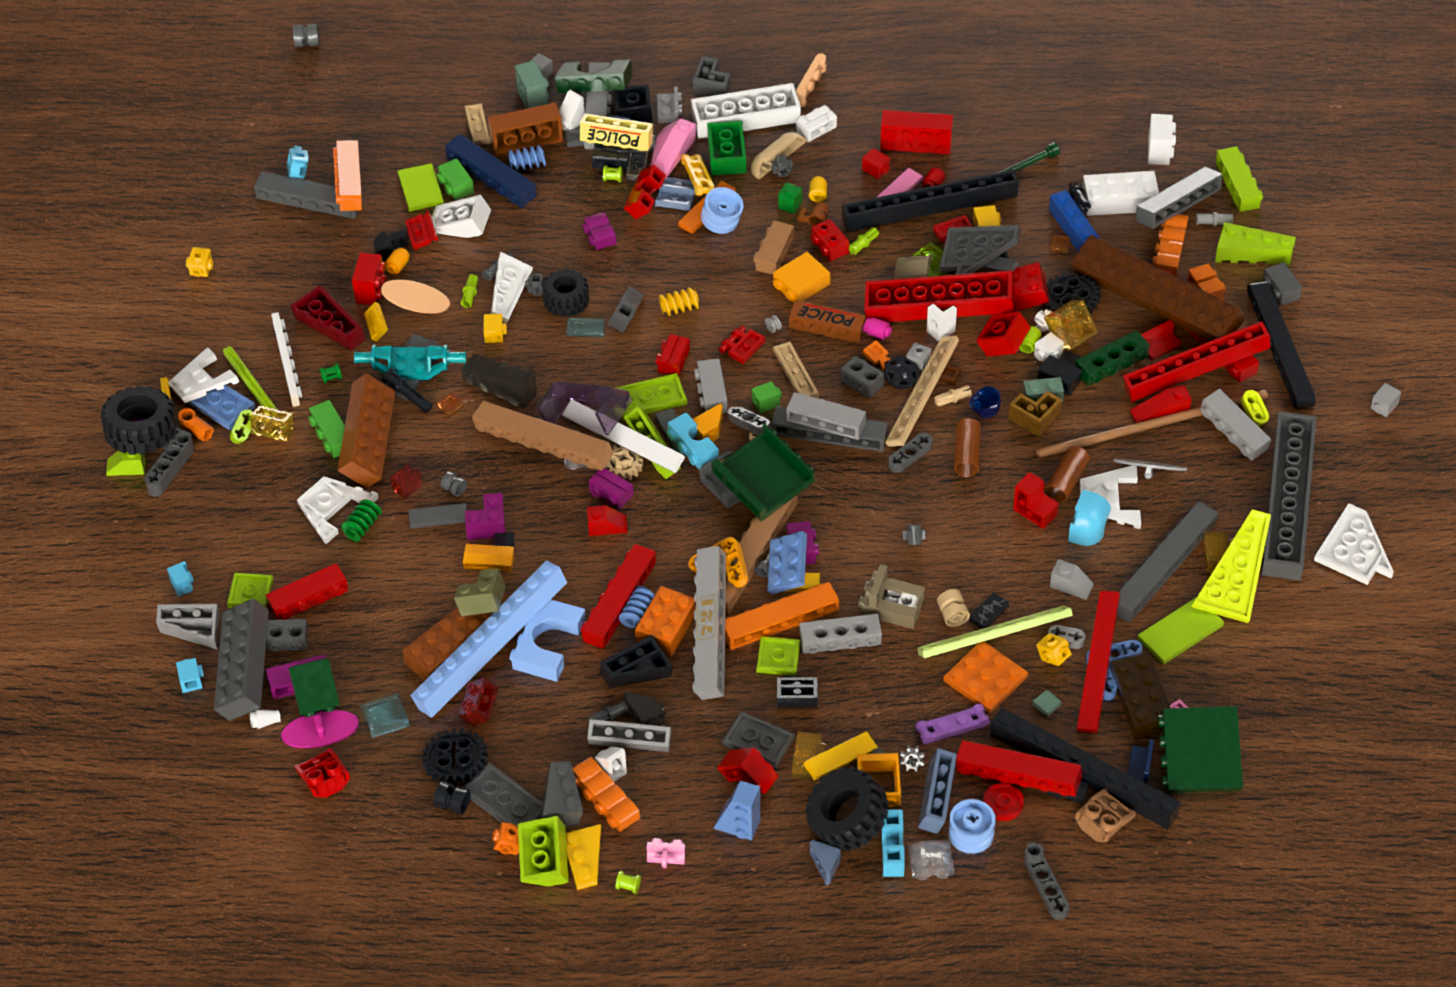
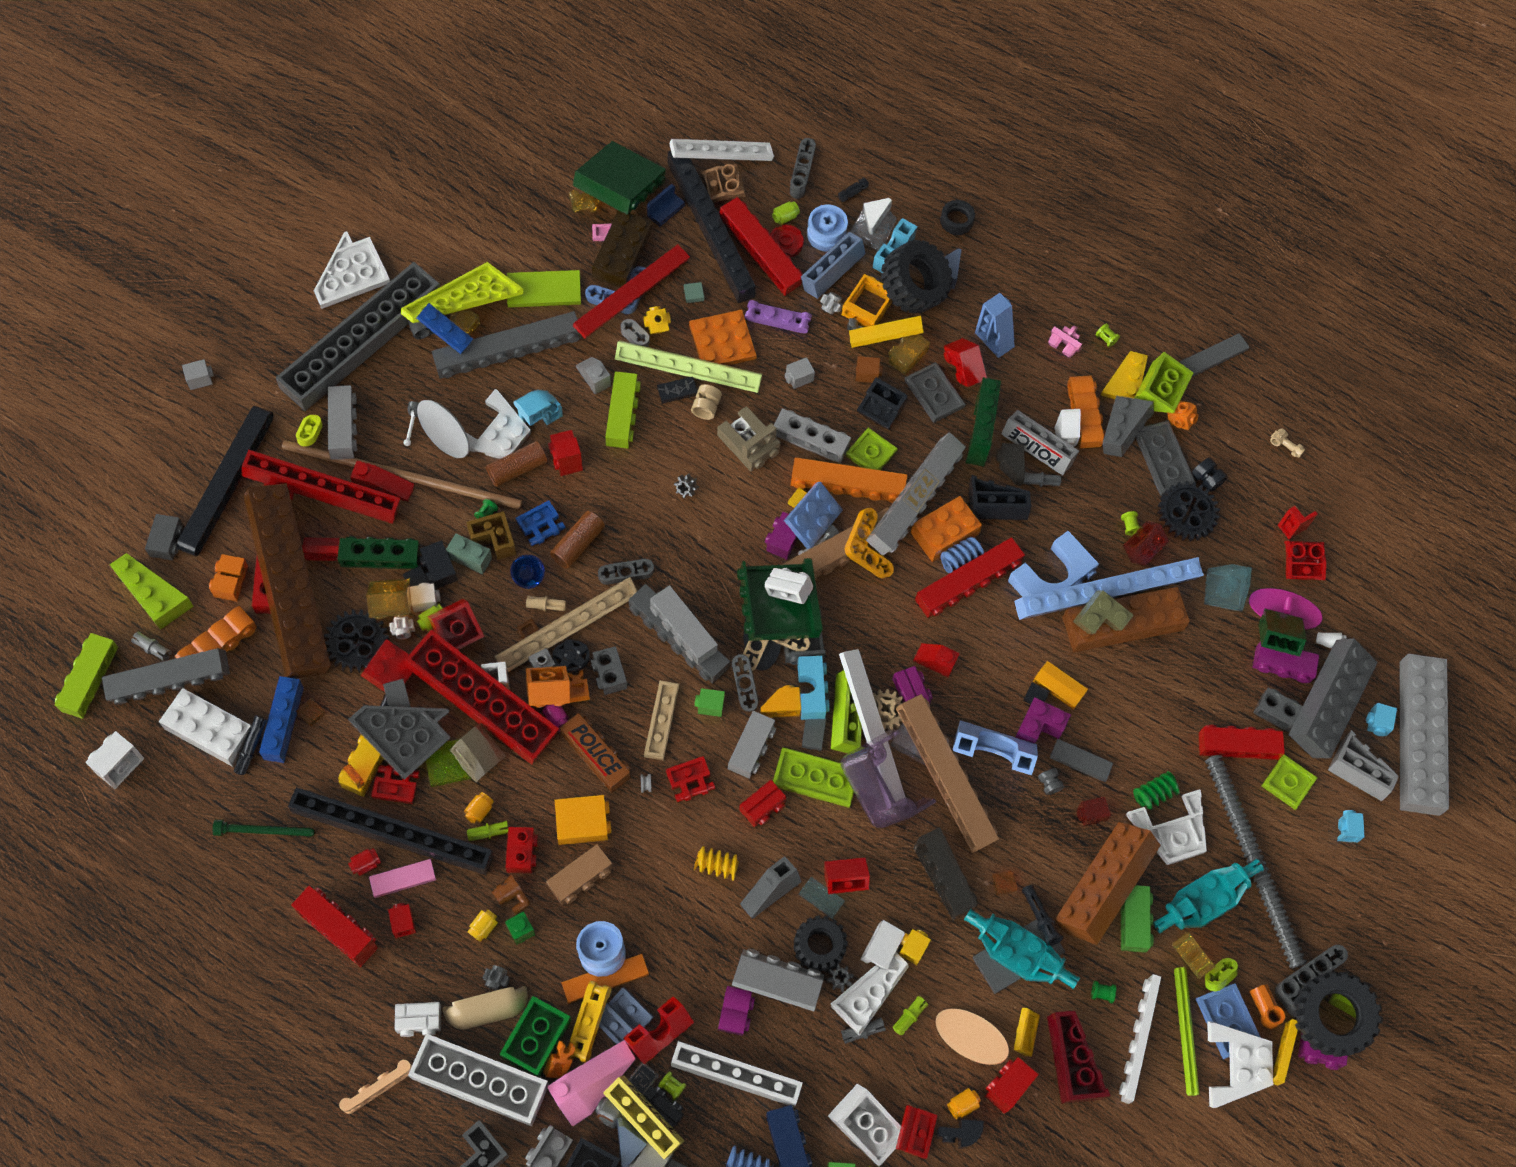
camera: 155 degrees left, 15 degrees up
(146, 682) = (1424, 735): none -> light grey brick
(251, 515) = (1252, 852): none -> dark grey piece
(281, 467) = (1208, 897): none -> teal plate
(346, 788) = (1295, 523): none -> red panel
(402, 878) = (1280, 437): none -> tan bar
(502, 718) = (1131, 522): none -> lime bush
(510, 926) = (1215, 354): none -> dark grey tile
(518, 315) = (883, 945): none -> white panel
(540, 474) = (1018, 751): none -> light blue arch
(571, 195) = (736, 1074): none -> white brick
(575, 340) = (846, 875): none -> red brick
(581, 250) = (778, 979): none -> light grey slope
(687, 702) = (985, 413): none -> dark green arch
(699, 144) = (559, 1063): none -> orange plate
(761, 475) = (789, 585): none -> white brick
(832, 714) = (868, 369): none -> dark orange brick
(860, 904) = (960, 206): none -> black tyre
(882, 248) = (478, 808): none -> light orange brick
(892, 681) = (799, 373): none -> light grey brick
(897, 330) = (547, 686): none -> orange brick
(934, 849) = (875, 213): none -> white slope
(979, 890) = (853, 189): none -> black axle
(984, 205) = (354, 776): none -> clear orange tile
(1014, 449) = (538, 518): none -> blue plate
(1020, 564) = (621, 410): none -> lime brick
(1023, 822) = (785, 212): none -> lime brick
(1061, 430) = (488, 506): none -> green bush
(1131, 834) = (721, 149): none -> white plate
(1192, 472) = (412, 411): none -> hinge
(1219, 522) = (444, 328): none -> blue plate

